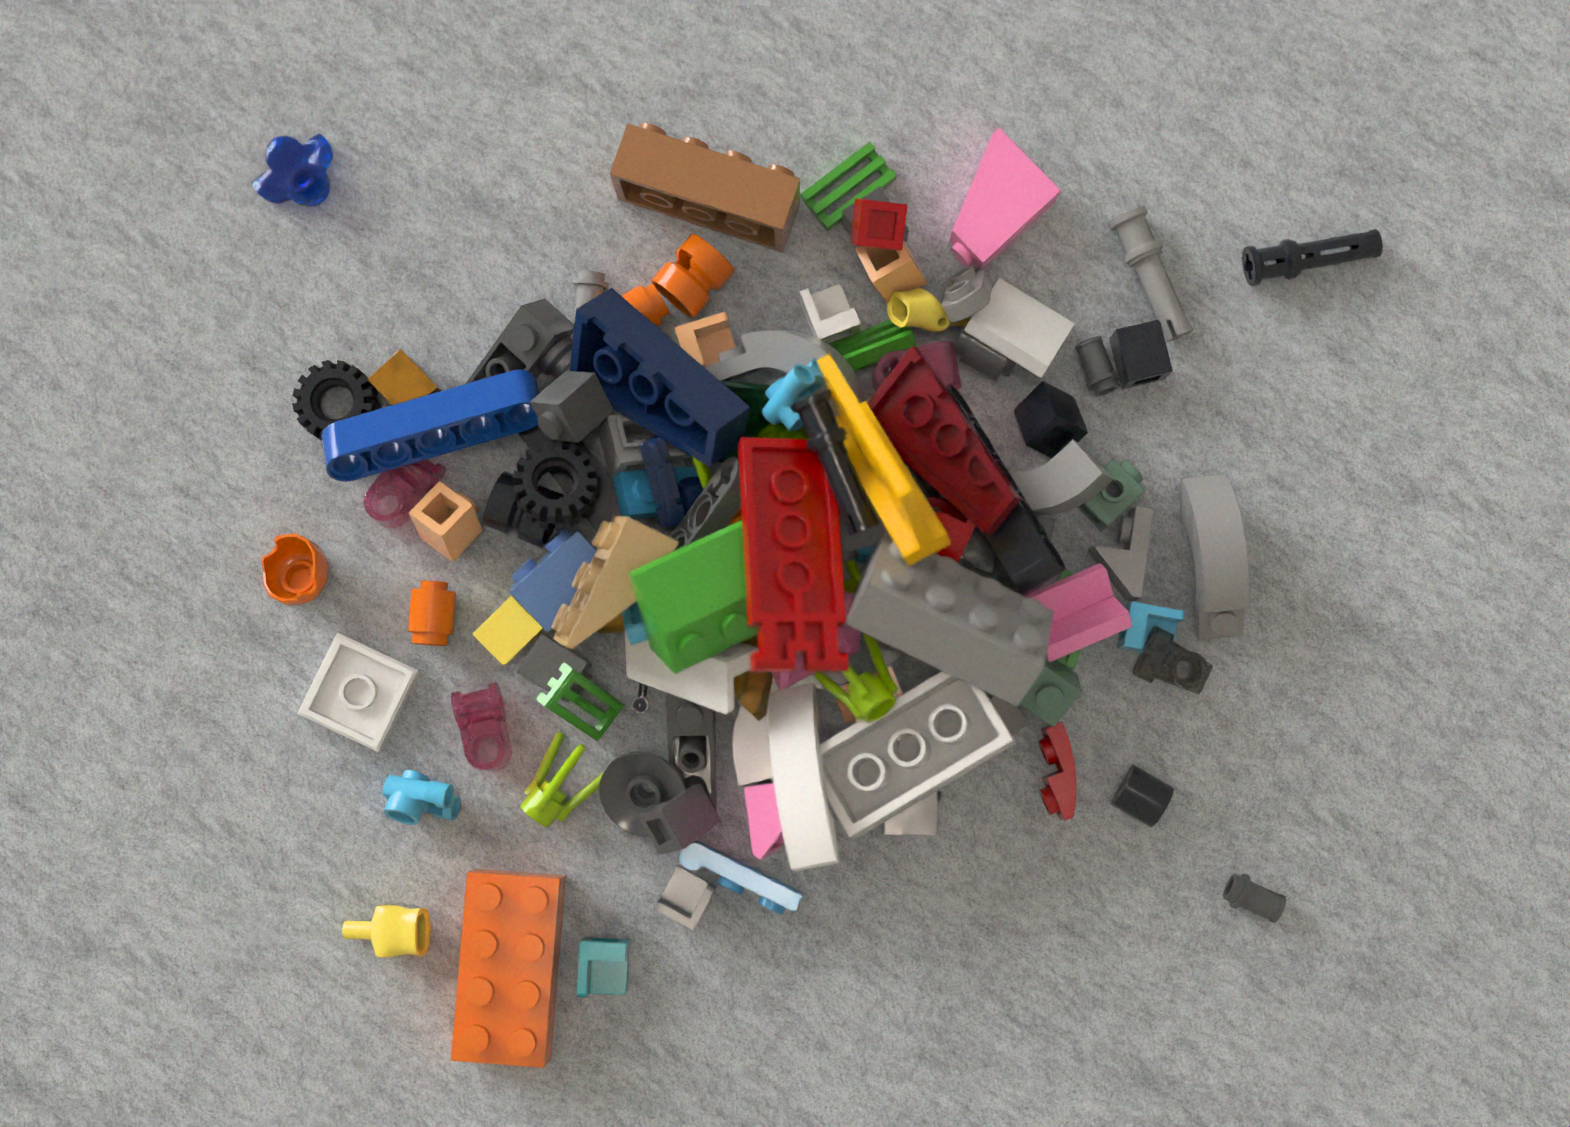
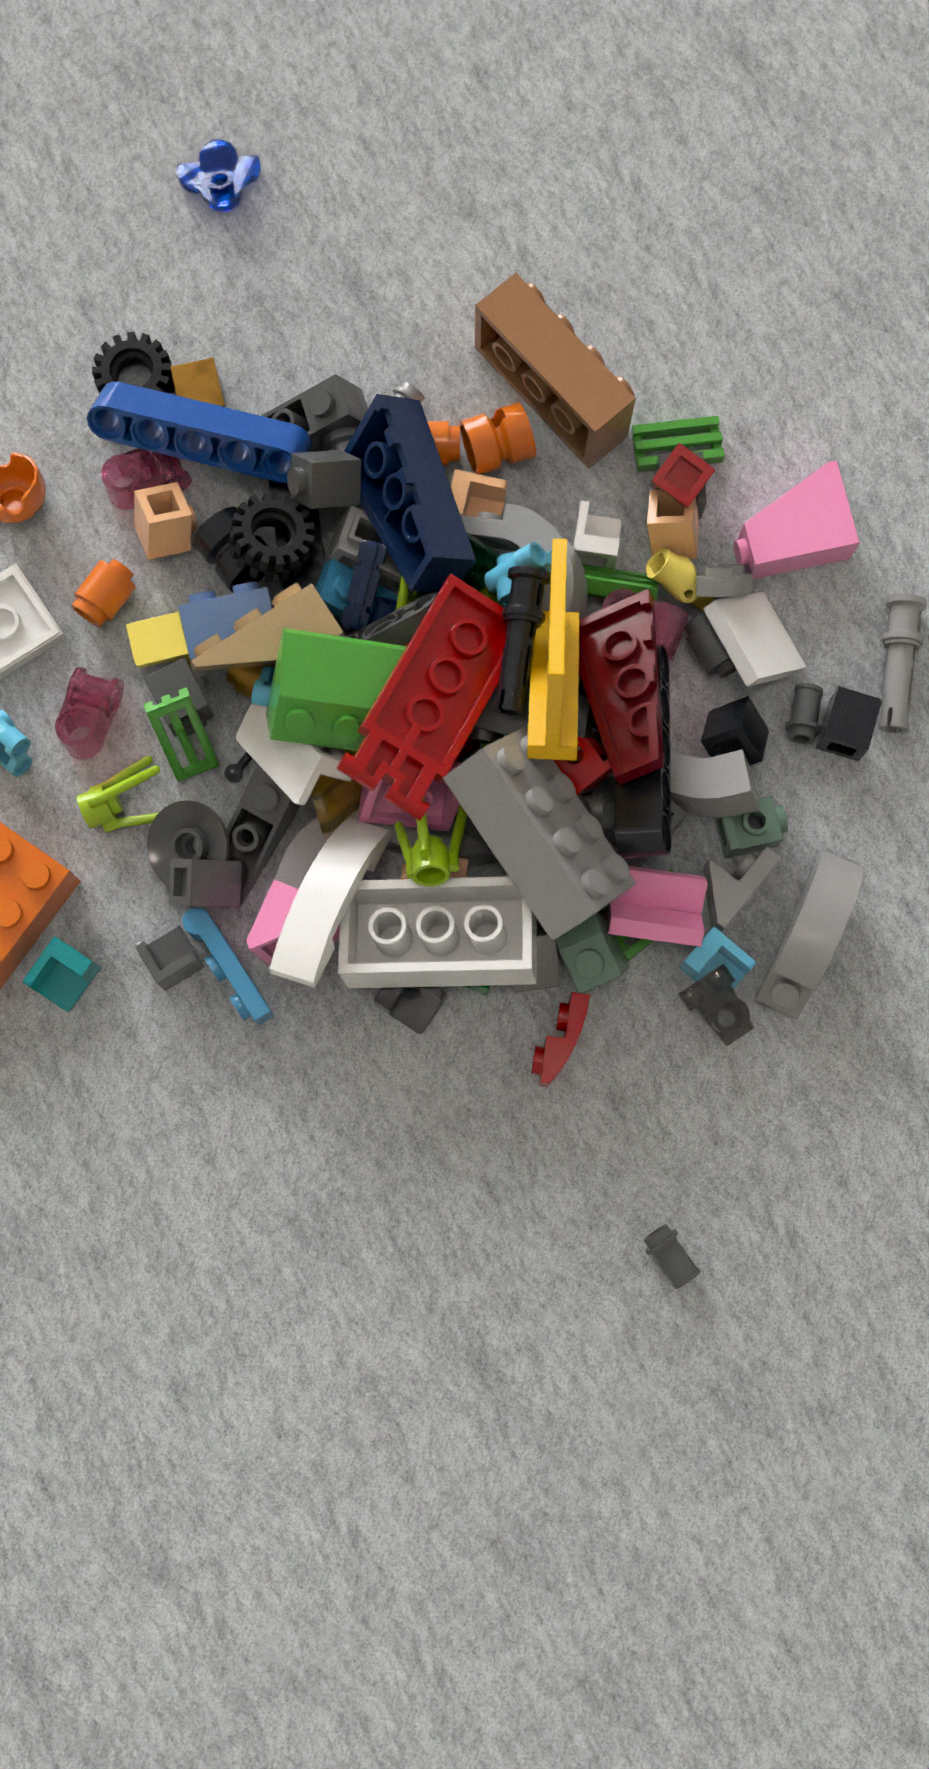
camera: 25 degrees right, 5 degrees down
(1143, 796) = (623, 1106): black brick -> none

